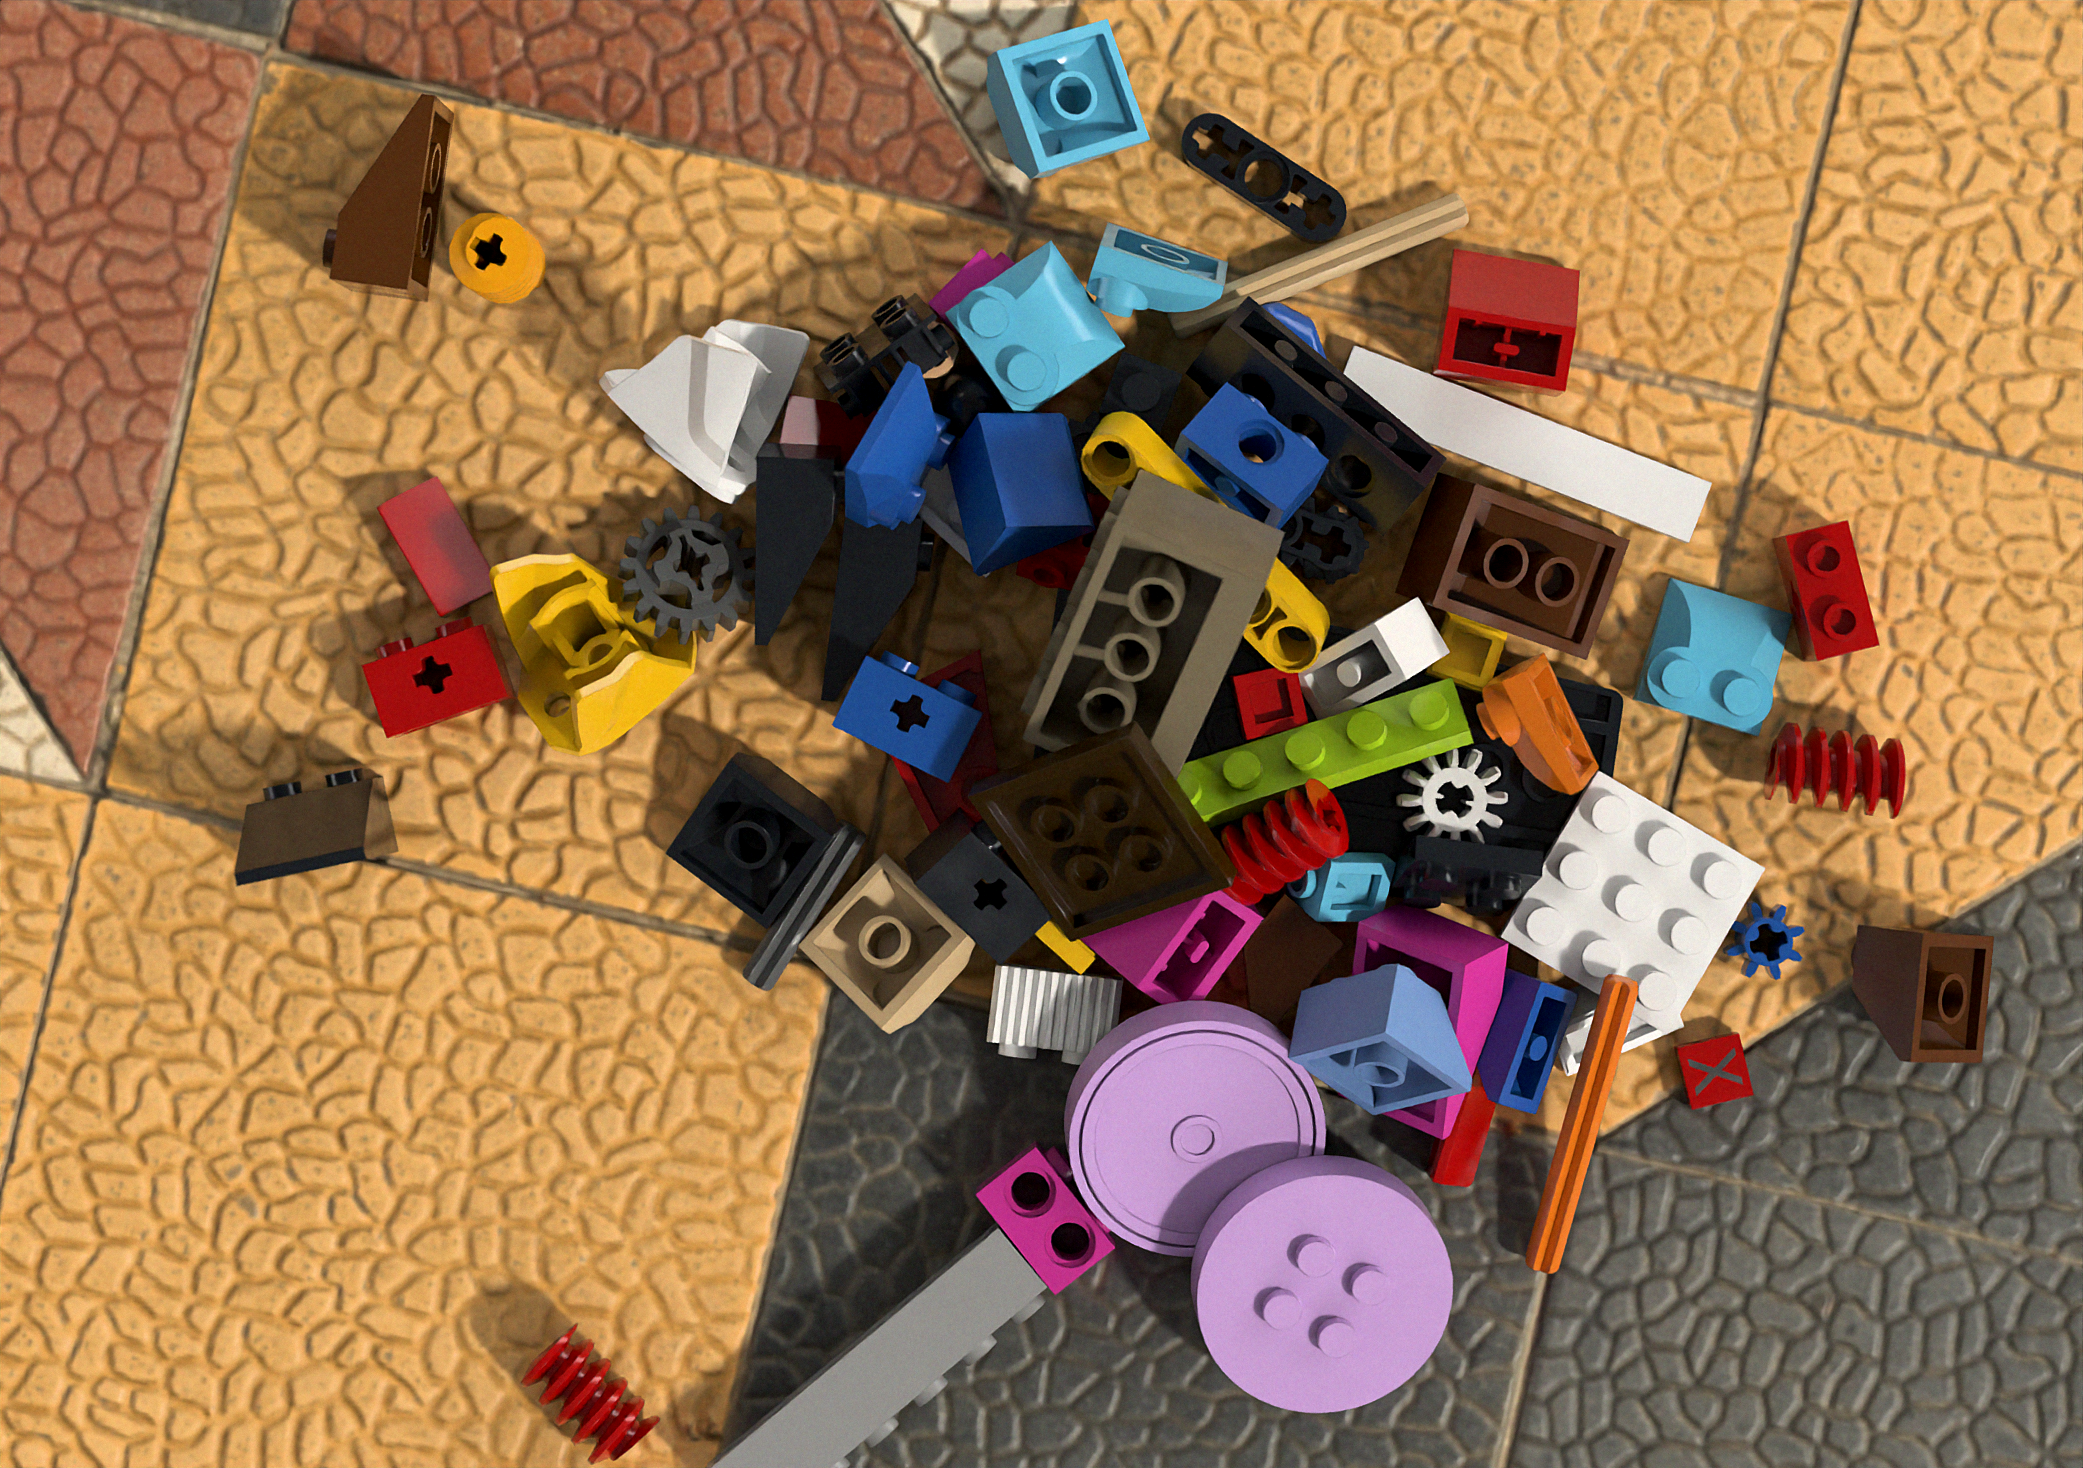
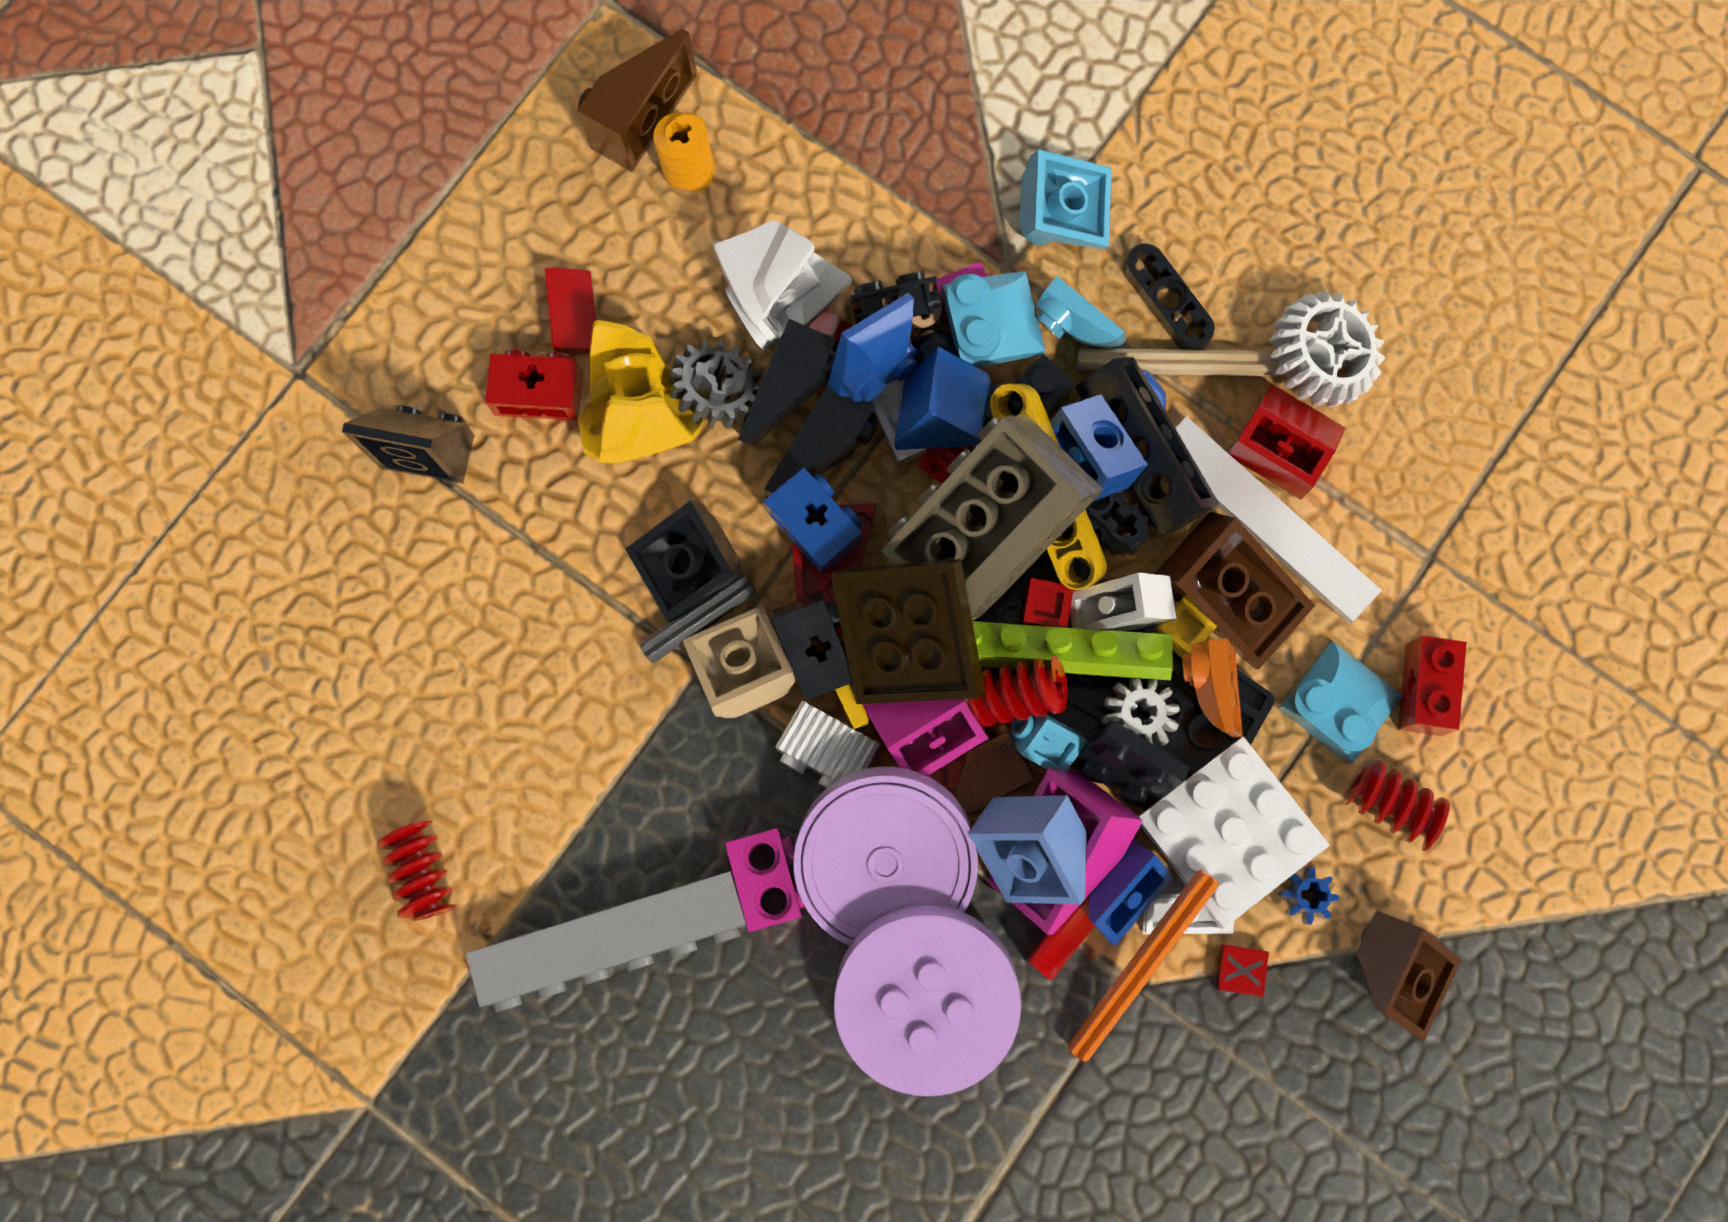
camera: 20 degrees right, 10 degrees down
(1507, 124) = (1340, 340): none -> white gear

